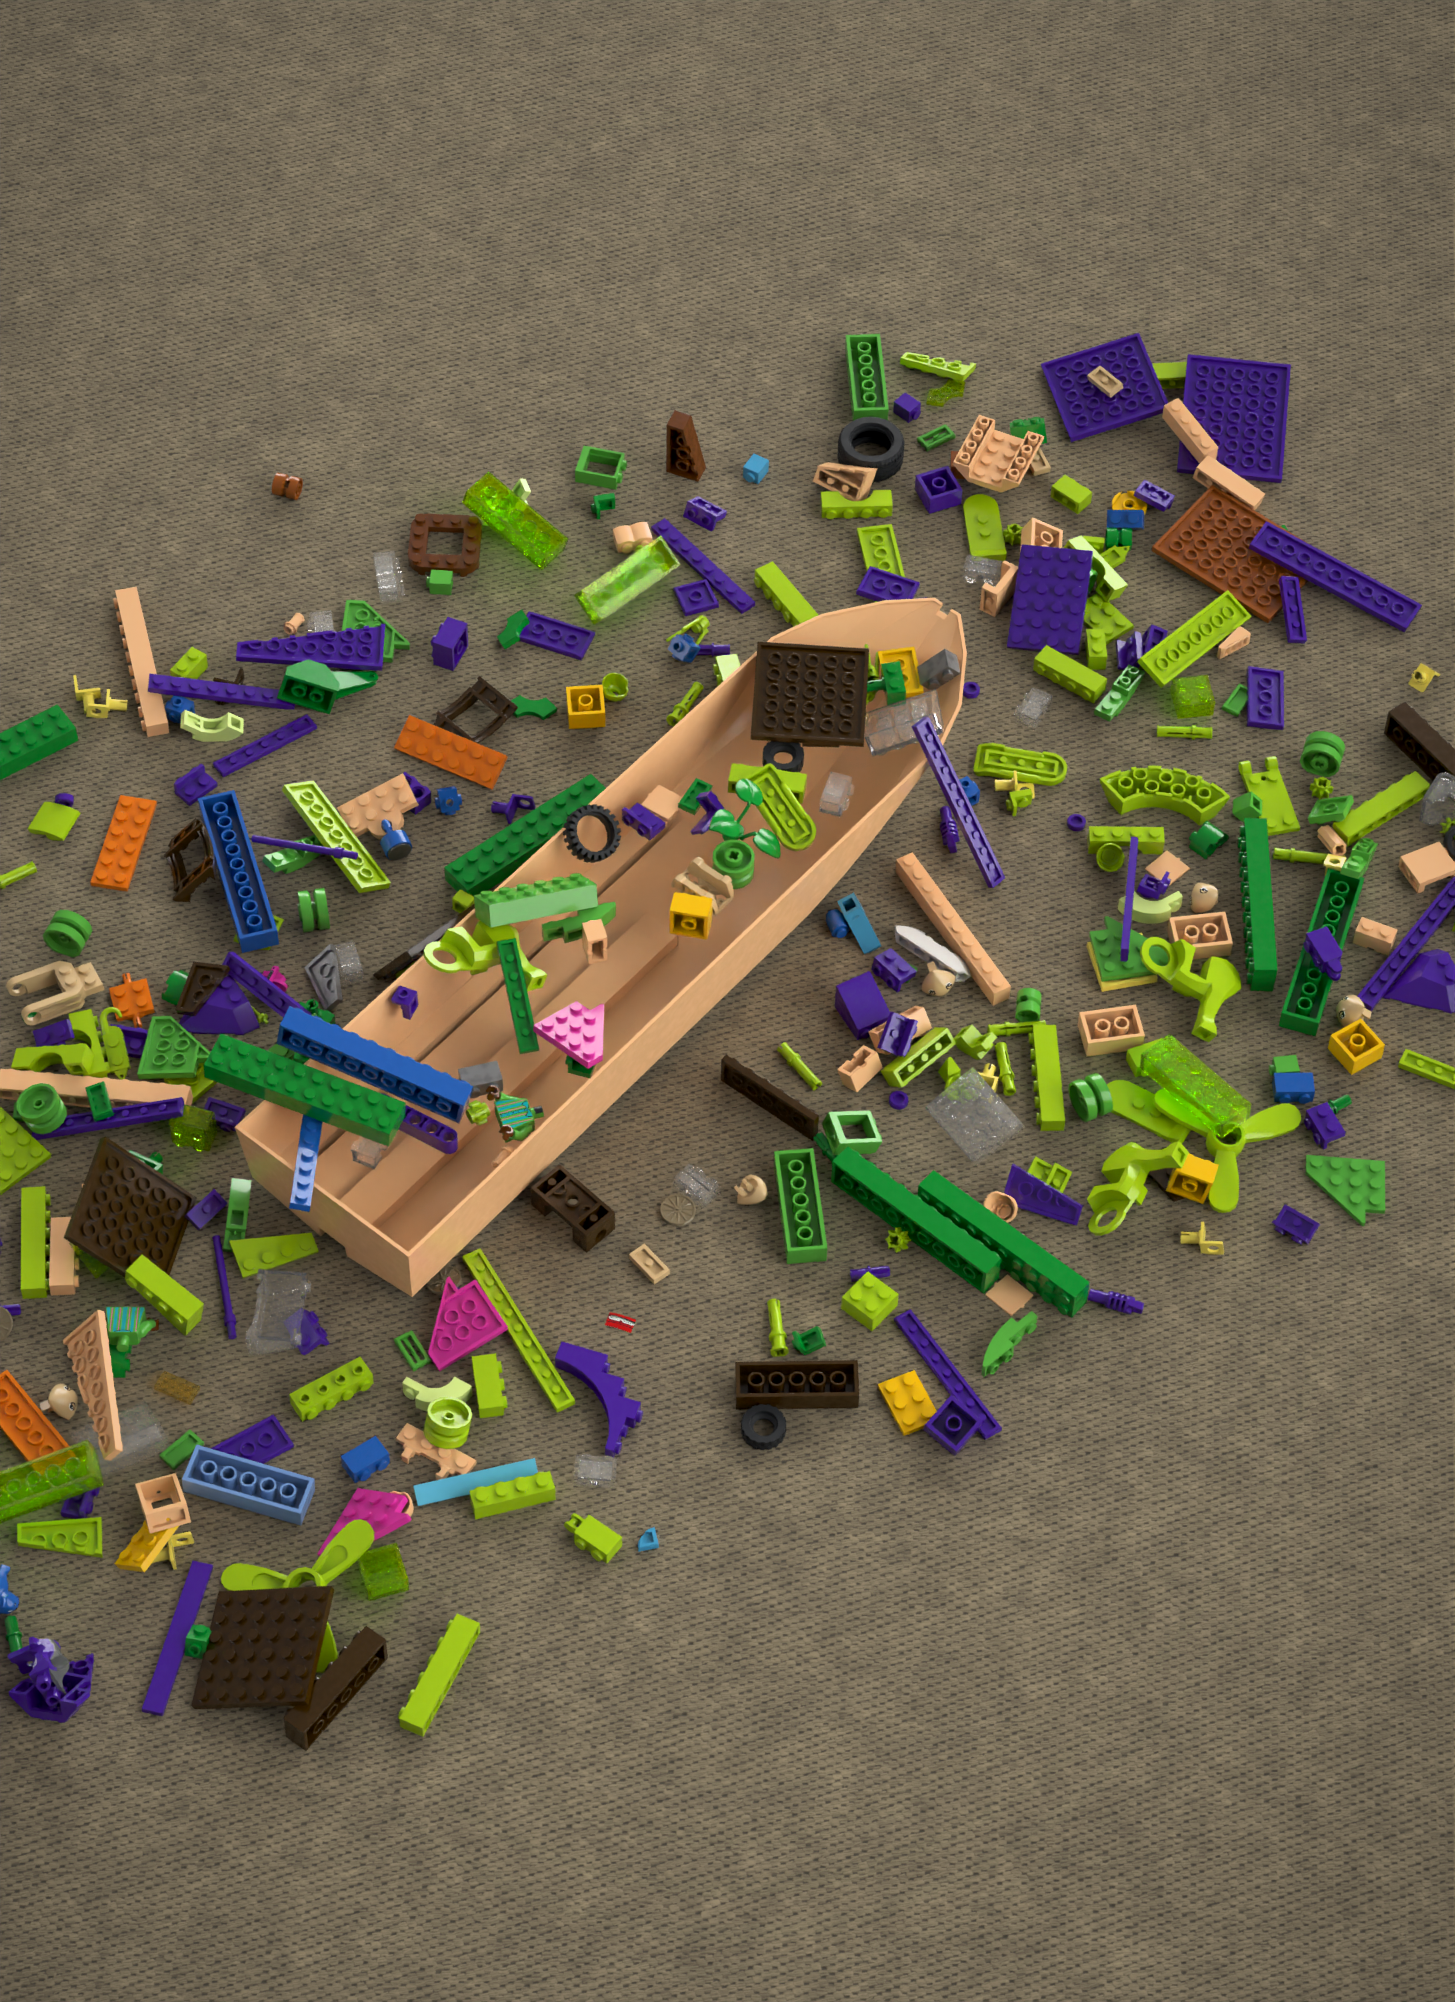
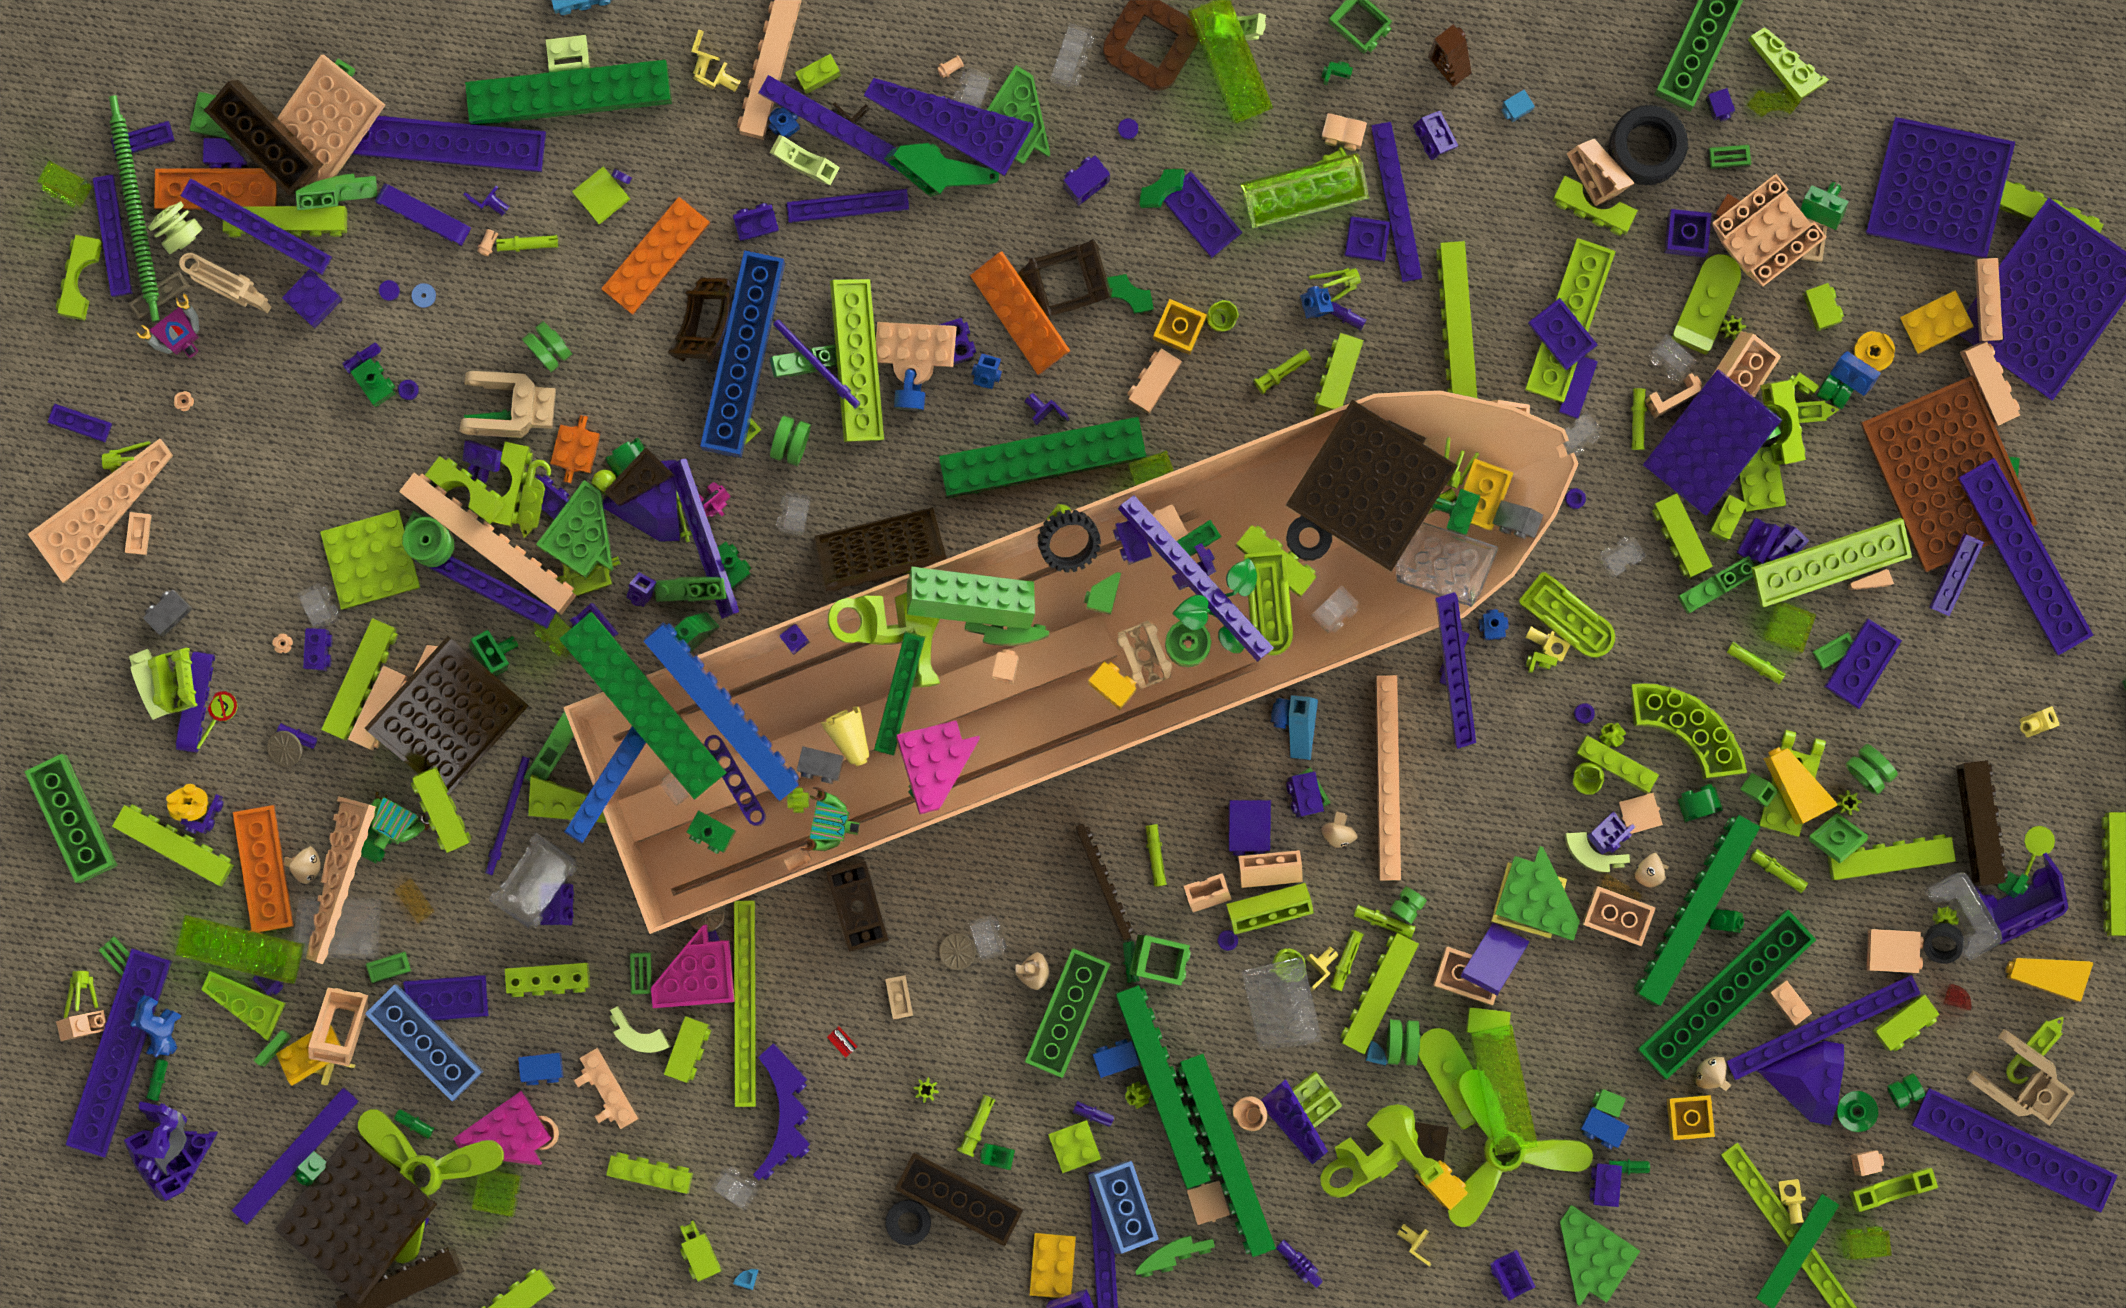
camera: 30 degrees right, 30 degrees up
(99, 1101) = (482, 565): green plate -> none
(109, 1558) = (272, 1048): none -> bright green tile
(168, 1007) = (603, 479): none -> lime piece
(206, 1209) = (529, 725): dark purple plate -> none
(274, 1559) = (414, 1123): none -> green axle
(325, 977) = (764, 523): flat silver wing -> none
(416, 1168) = (711, 832): none -> green brick
(440, 582) = (1120, 90): bright green brick -> none
(447, 1422) = (616, 1073): lime wheel -> none
(461, 606) = (1128, 128): none -> dark purple tile
(462, 901) = (939, 501): lime slope -> none
(462, 1484) = (626, 1141): medium azure tile -> none
(492, 1045) = (848, 735): none -> light yellow cone
(587, 751) = (1153, 380): none -> light nougat brick
(642, 864) = (1103, 594): none -> bright green slope
(704, 808) = (1195, 578): none -> plate
(716, 1319) = (932, 1091): none -> lime gear
(862, 1222) = (1116, 1058): none -> blue brick
(897, 1034) = (1259, 883): dark purple bracket -> none
(930, 951) = (1364, 818): white brick -> none
(940, 1322) = (1123, 1207): none -> medium blue brick
(949, 1069) = (1291, 937): lime slope -> none
(973, 1043) = (1332, 918): lime brick -> none
(980, 614) = (1638, 422): none -> lime pin
(1074, 1125) = (1376, 1054): none -> dark azure tile
(1105, 381) = (1940, 187): tan plate -> none
(1108, 819) = (1612, 735): none -> lime gear
(1124, 1002) = (1495, 959): none -> tile
(1129, 899) = (1571, 844): dark purple tile -> none
(1154, 495) = (1904, 357): dark purple bracket -> none
(1163, 466) = (1936, 322): none -> yellow plate
(1213, 987) = (1599, 979): lime animal -> none
(1274, 788) = (1798, 788): none -> yellow slope
(1286, 905) = (1727, 920): none -> green bracket
(1324, 952) = (1719, 1009): dark purple hinge -> none
(1332, 840) = (1817, 873): light nougat axle -> none
(1334, 862) = (1802, 903): light yellow bracket -> none
(1359, 859) = (1829, 909): bright green slope -> none

